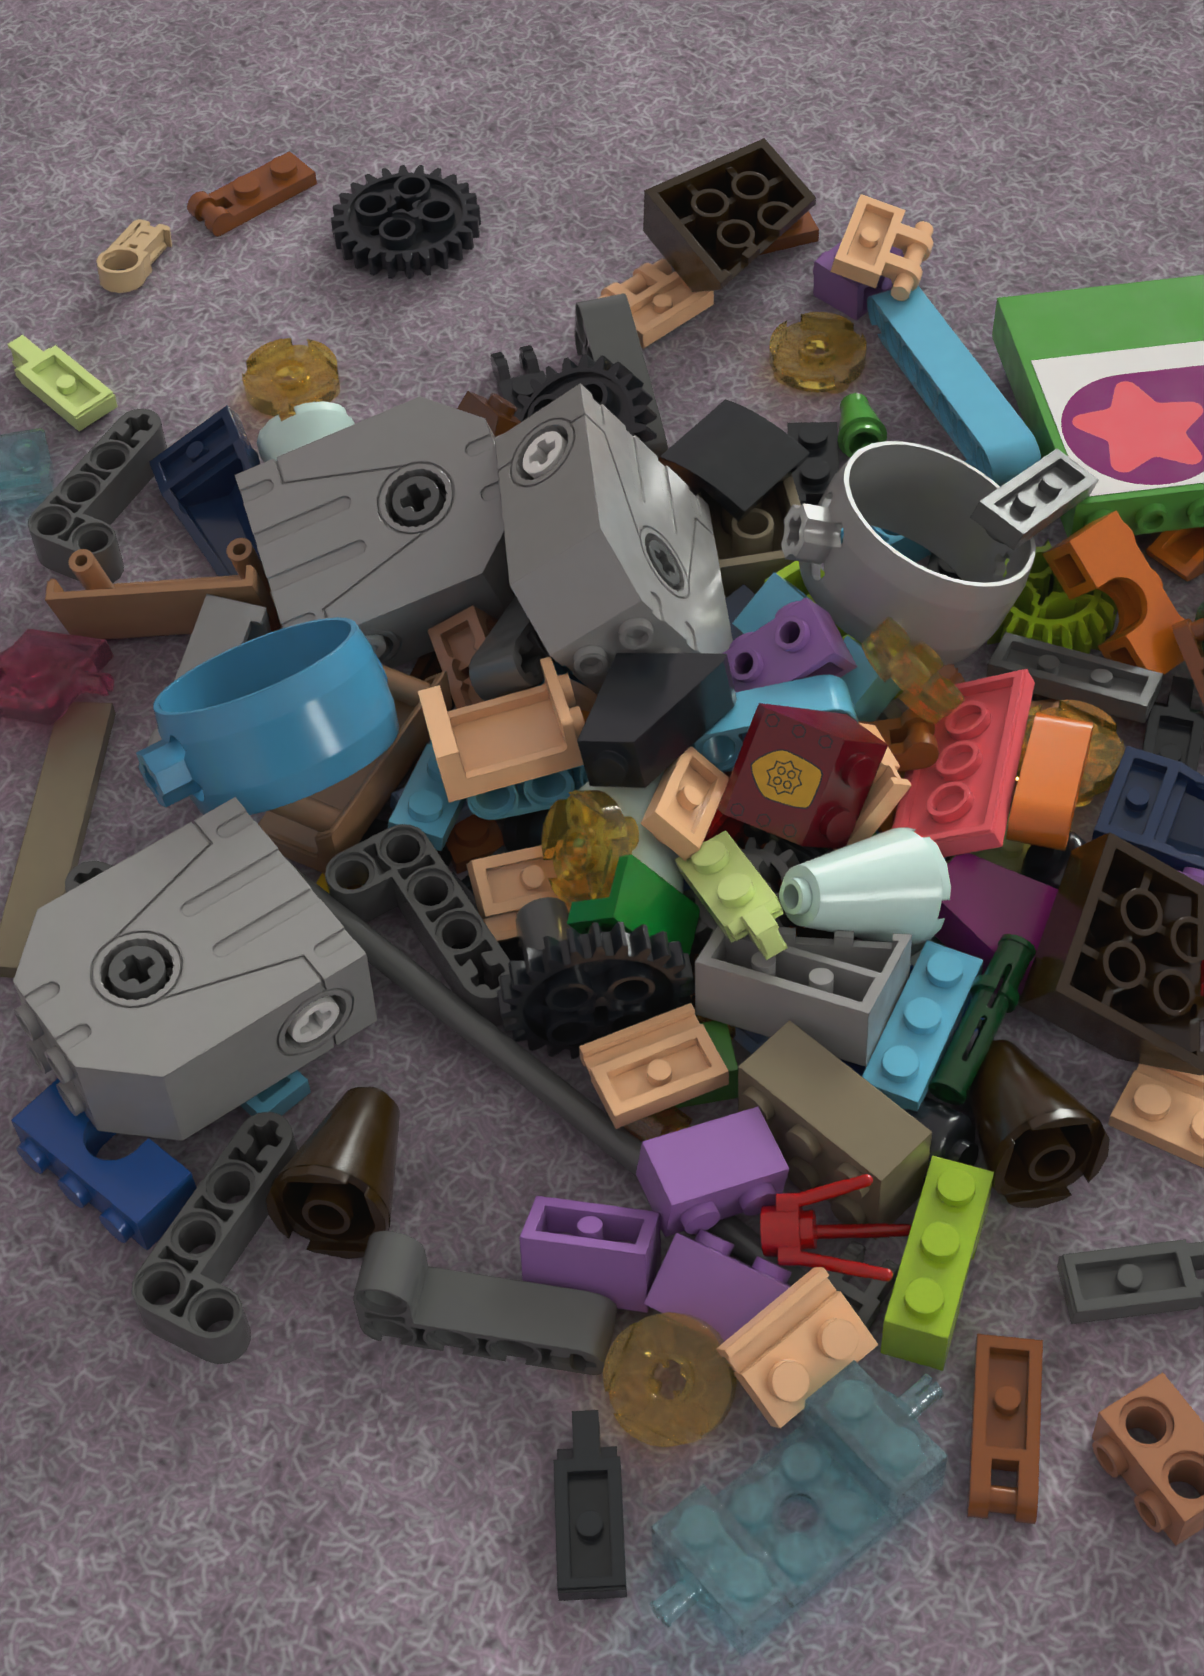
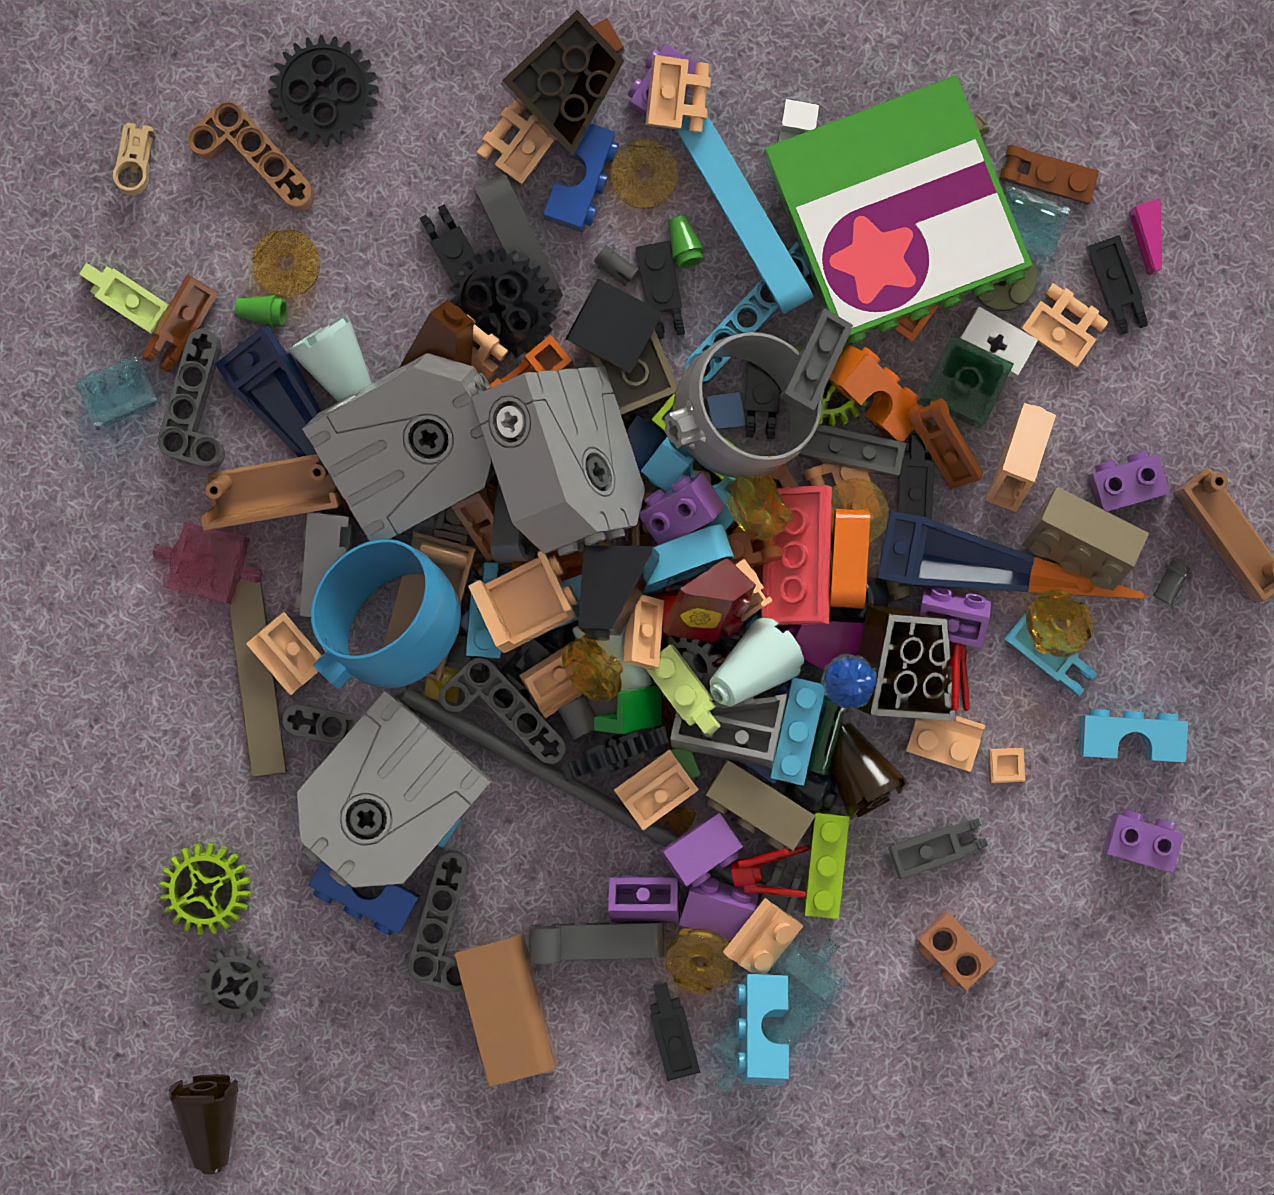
camera: 15 degrees left, 35 degrees up
(110, 805) = (285, 653): none -> light nougat plate
(146, 388) = (180, 319): none -> dark orange hinge
(251, 194) = (199, 72): dark orange plate -> none
(252, 412) = (265, 310): none -> bright green cone
(276, 238) = (259, 159): none -> medium nougat beam
(287, 1392) = (506, 1010): none -> medium nougat piece
(341, 1177) = (500, 873): dark brown cone -> none
(712, 364) = (573, 204): none -> blue arch
(755, 1538) = (760, 1059): none -> medium azure arch
(1005, 1426) = (872, 945): dark orange plate -> none
(1024, 927) = (849, 681): none -> blue piece

